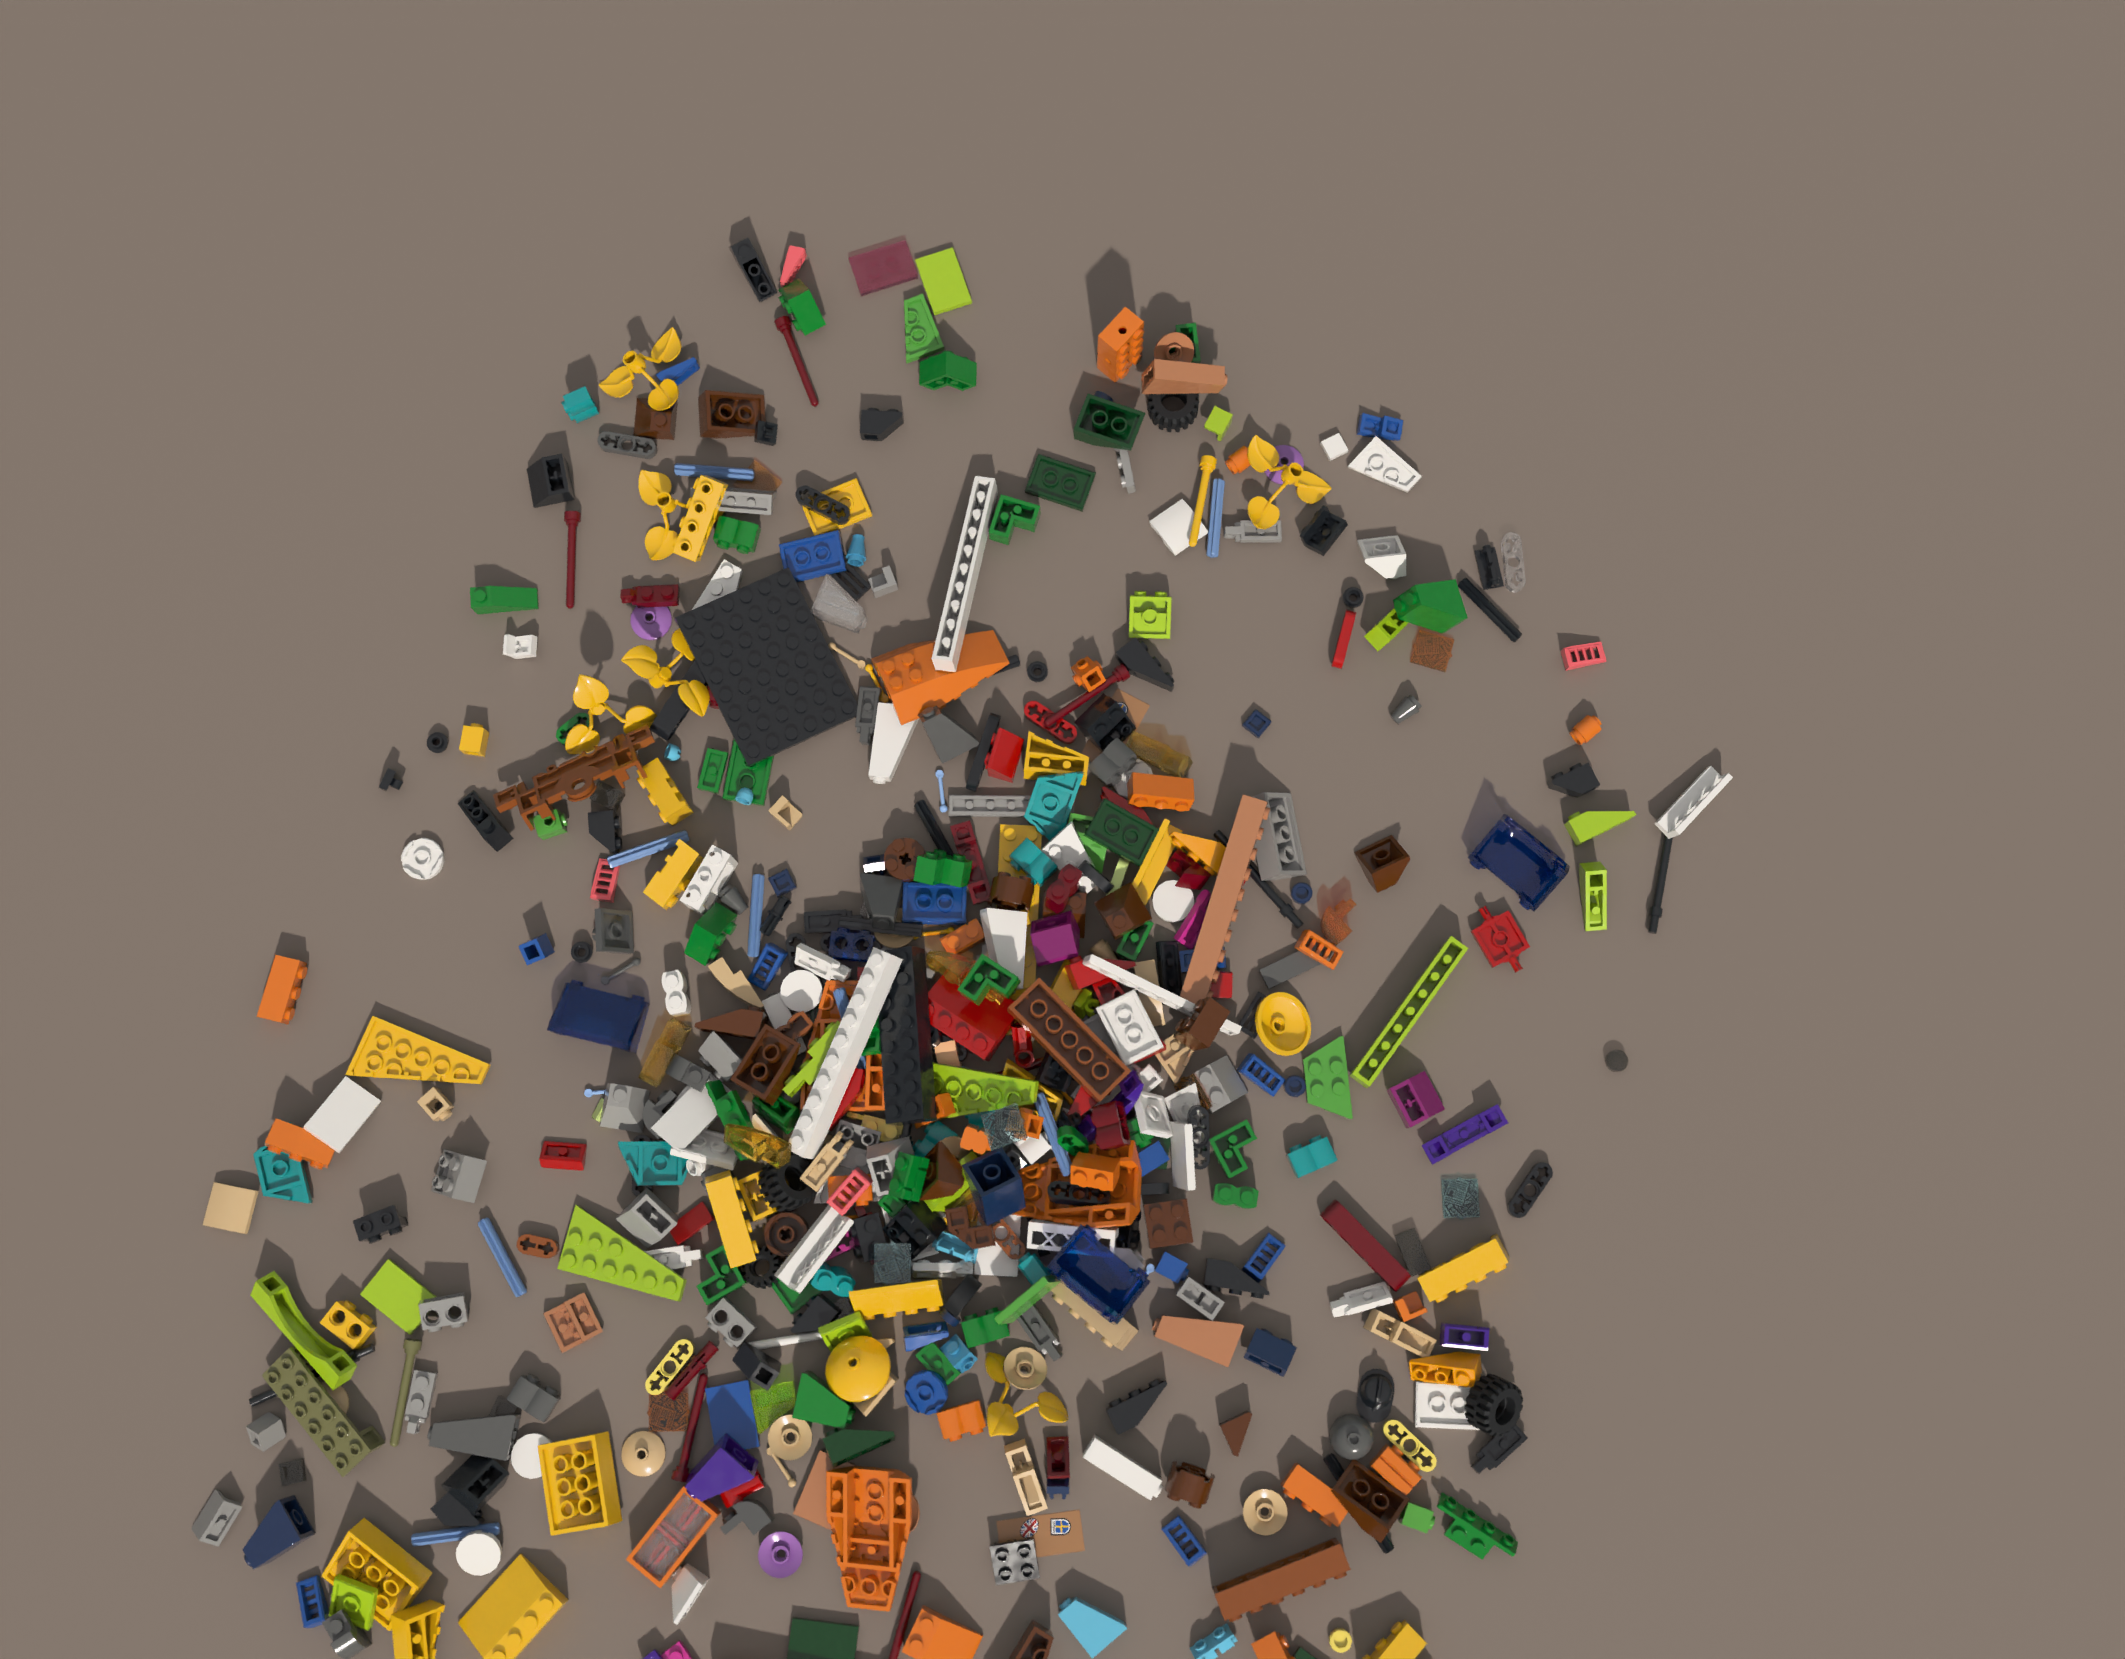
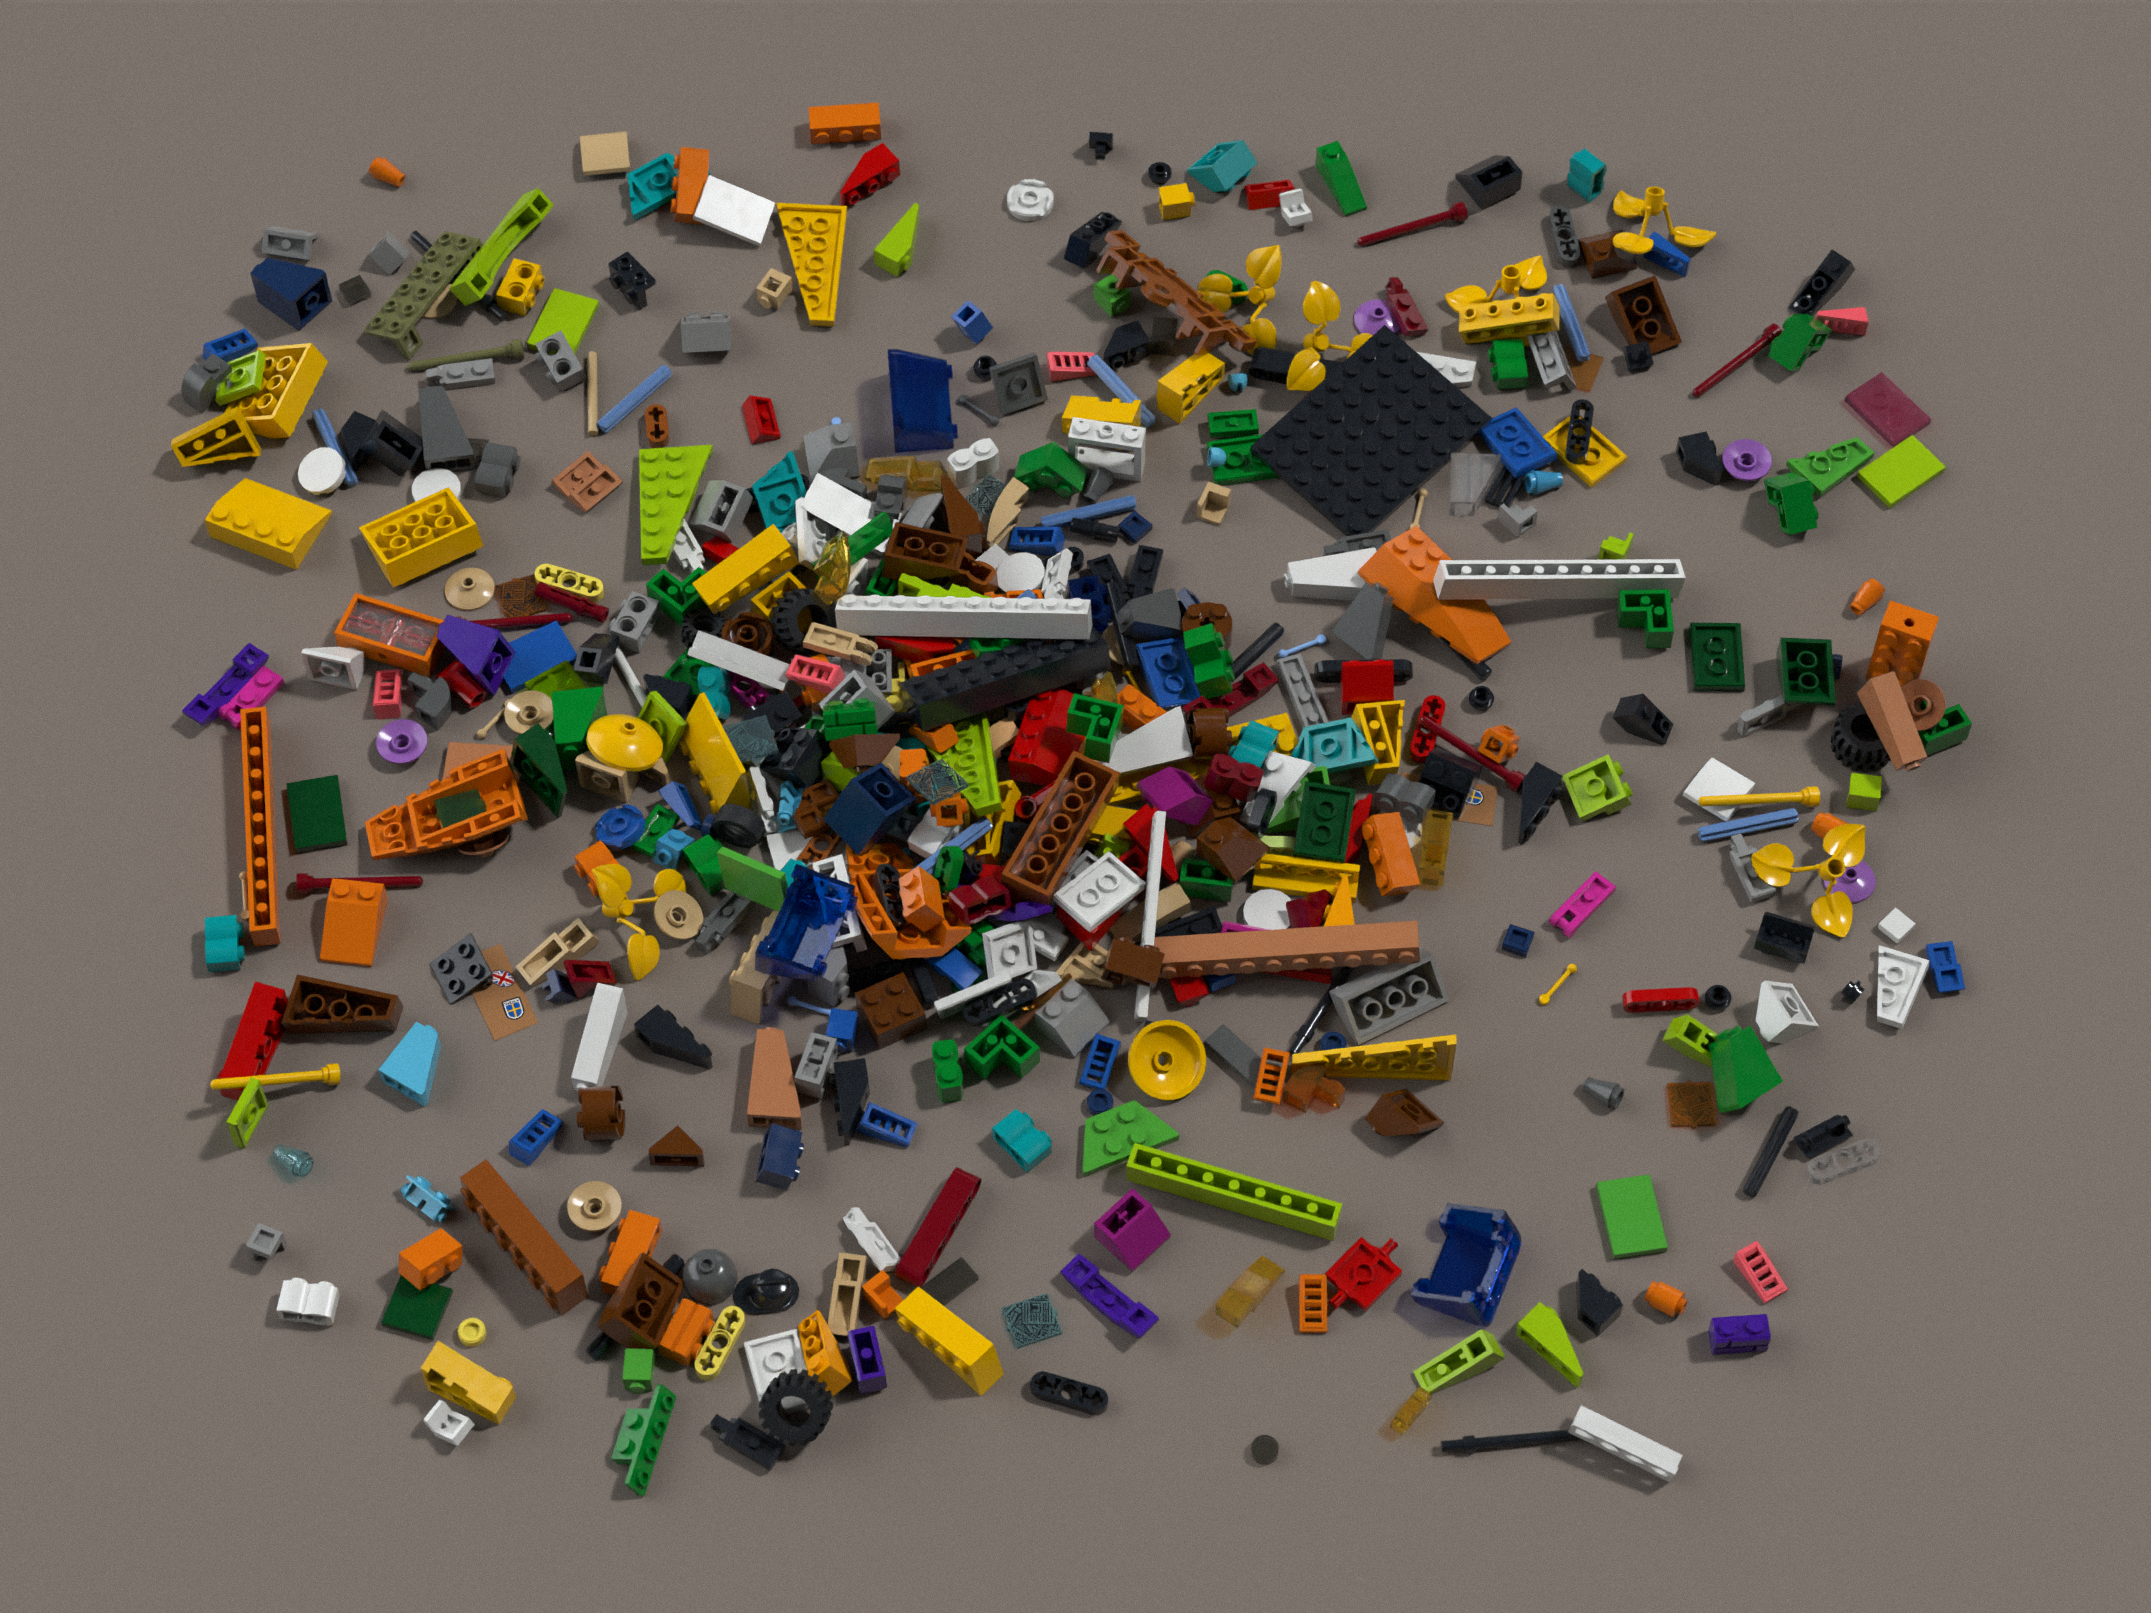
camera: 70 degrees right, 20 degrees down
(174, 1410) = (385, 171): none -> orange cone
(343, 981) = (872, 171): none -> red slope
(434, 987) = (897, 247): none -> lime slope
(452, 689) = (1223, 166): none -> teal slope
(481, 1291) = (592, 393): none -> tan bar
(492, 662) = (1266, 194): none -> red slope
(708, 991) = (985, 495): none -> clear light blue piece
(742, 1558) = (388, 695): none -> coral slope
(832, 890) = (1145, 571): none -> black hinge
(869, 1523) = (459, 807): none -> clear green piece
(894, 381) = (1746, 452): none -> medium lavender dish
(939, 519) = (1615, 548): none -> lime panel
(1047, 350) = (1868, 595): none -> orange cone
(1100, 558) = (1642, 719): none -> black slope
(1243, 664) = (1582, 903): none -> dark pink plate
(1311, 722) = (1544, 998): none -> yellow hinge
(1335, 862) = (1407, 1059): none -> yellow wing
(1381, 500) = (1852, 992): none -> black plate
(1489, 1027) = (1248, 1291): none -> clear yellow slope
(1494, 984) = (1312, 1286): none -> orange slope
(1510, 728) = (1631, 1216): none -> bright green tile
(1620, 944) = (1411, 1411): none -> clear yellow beam
(1630, 689) = (1739, 1334): none -> dark purple brick

